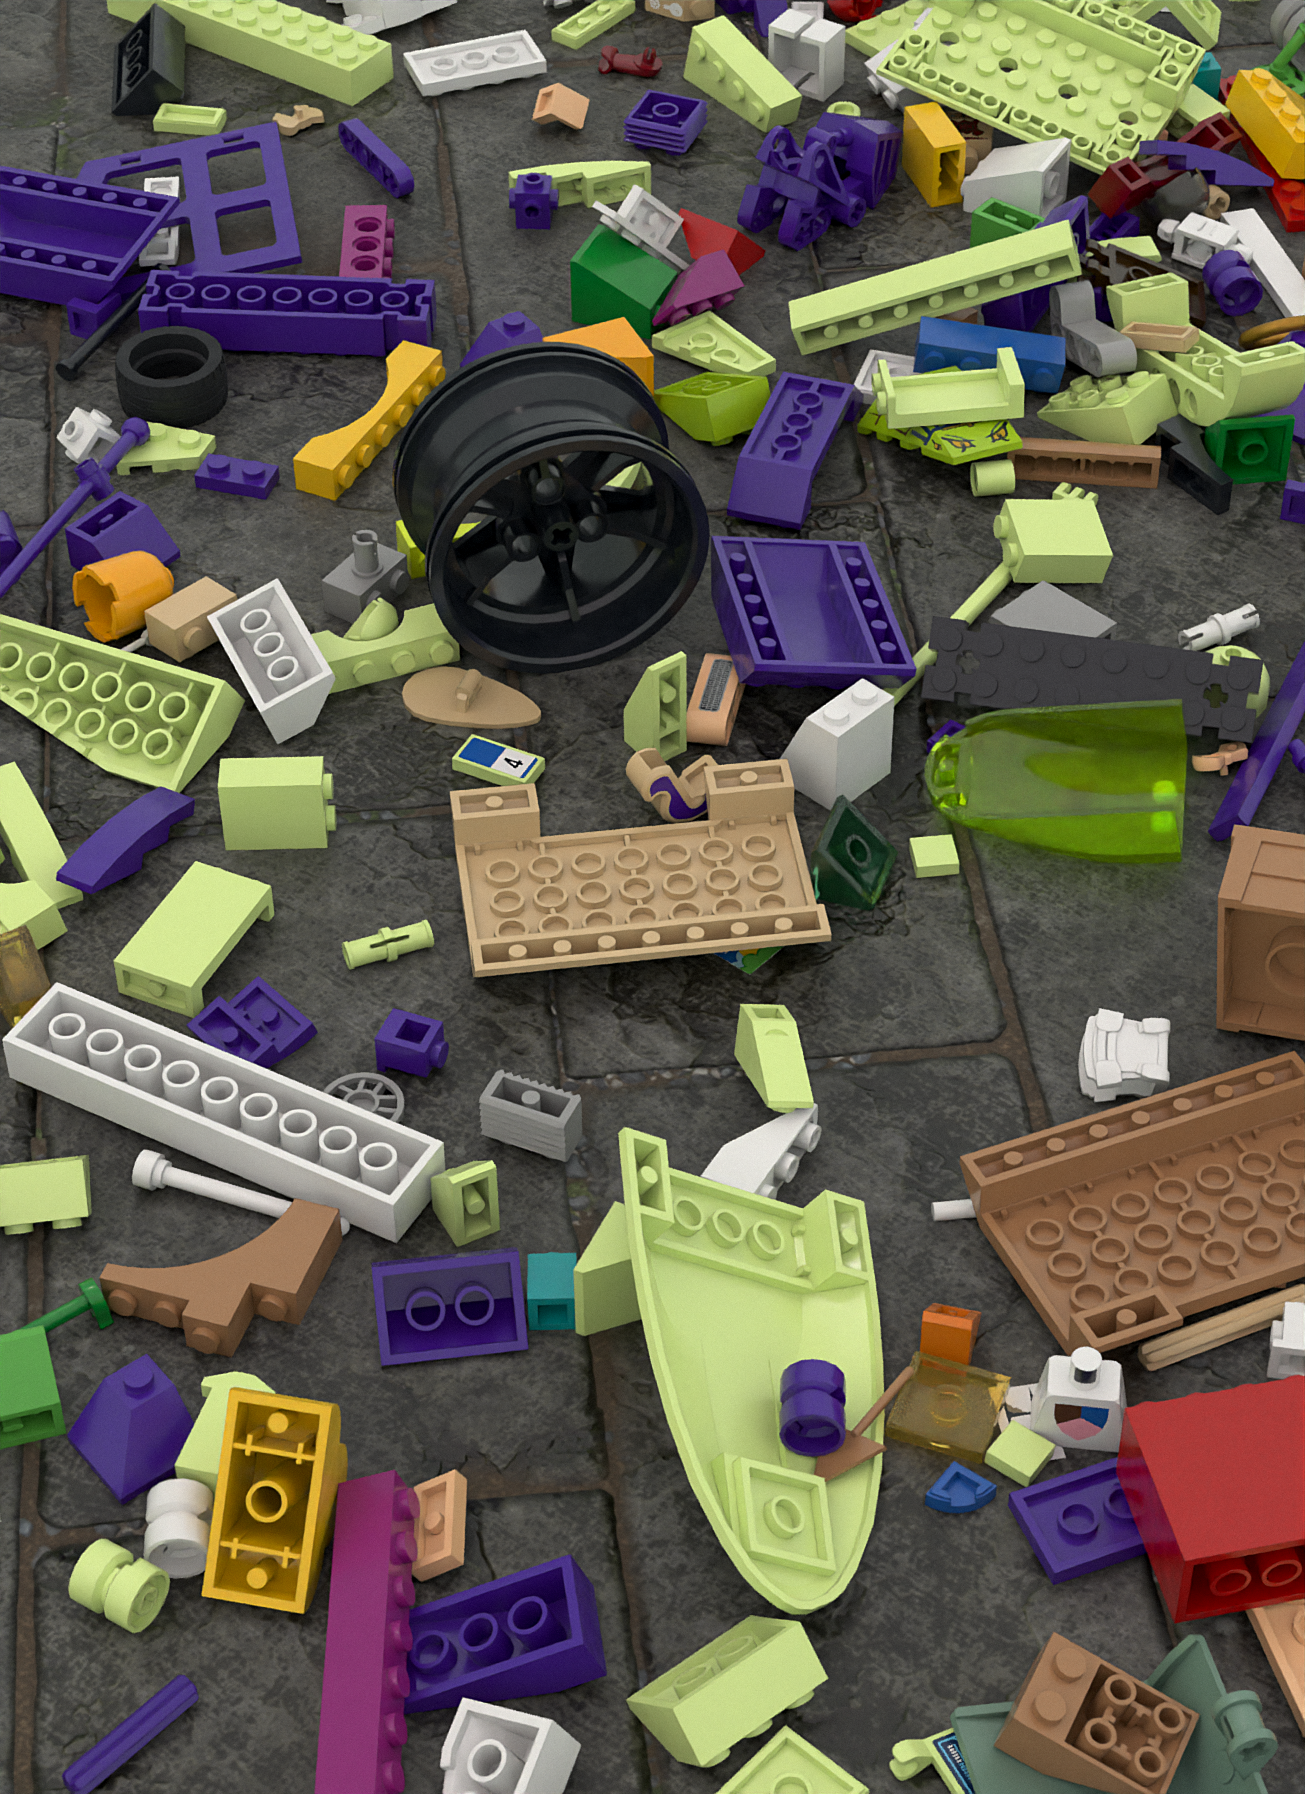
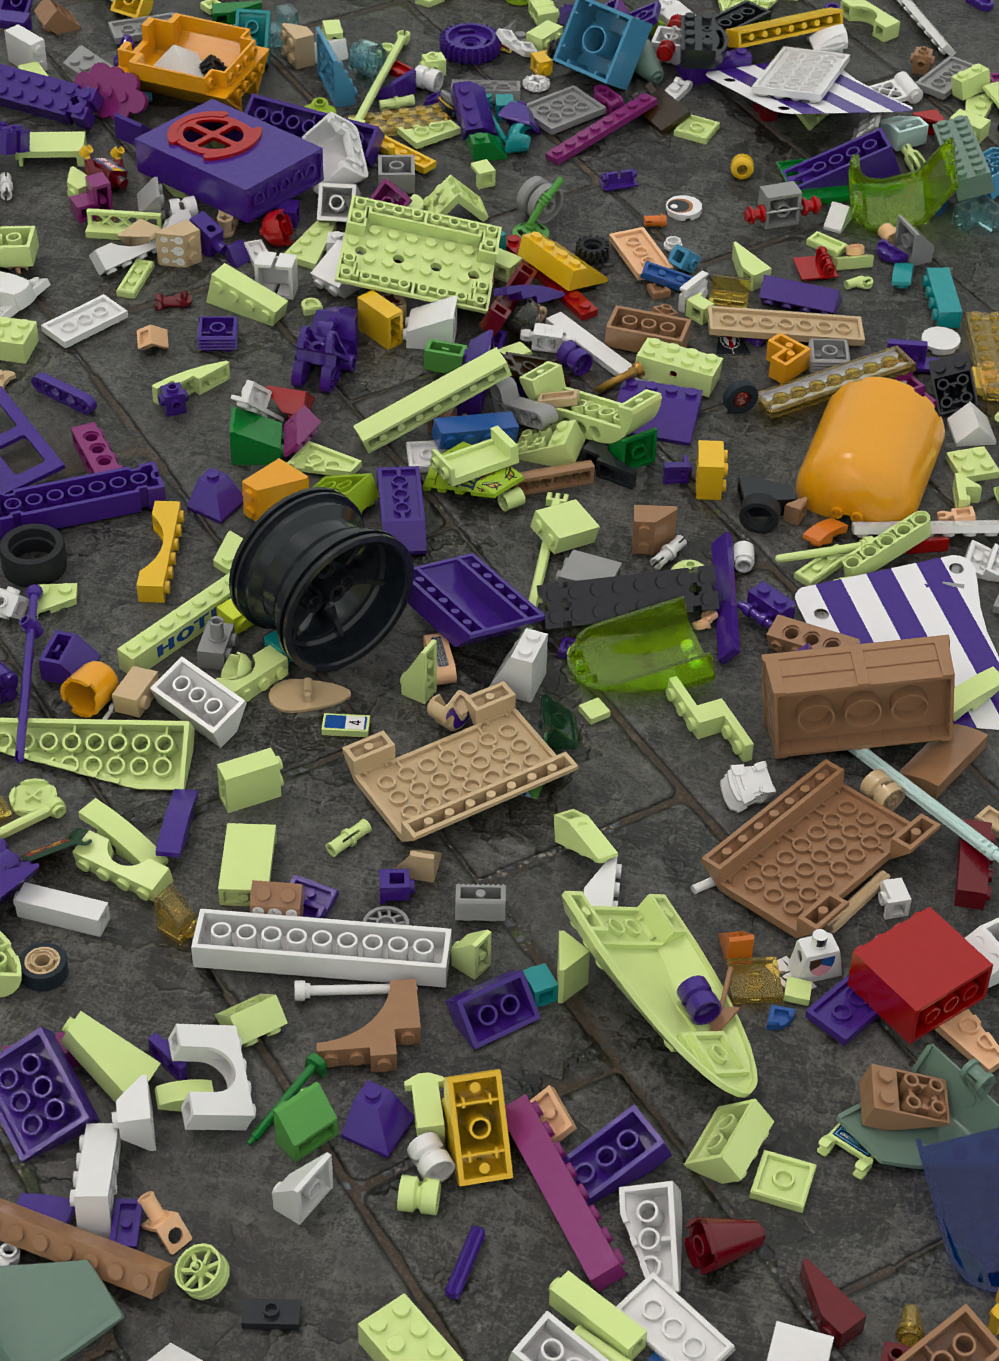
camera: 25 degrees left, 0 degrees up
(190, 1005) = (277, 898): none -> medium nougat slope
(237, 476) = (102, 603): dark purple plate -> none
(300, 543) = (173, 629): none -> yellowish green brick
(479, 1022) = (421, 864): none -> tan slope
(1128, 925) = (709, 719): none -> yellowish green bracket
(1203, 579) = (652, 528): none -> medium nougat slope

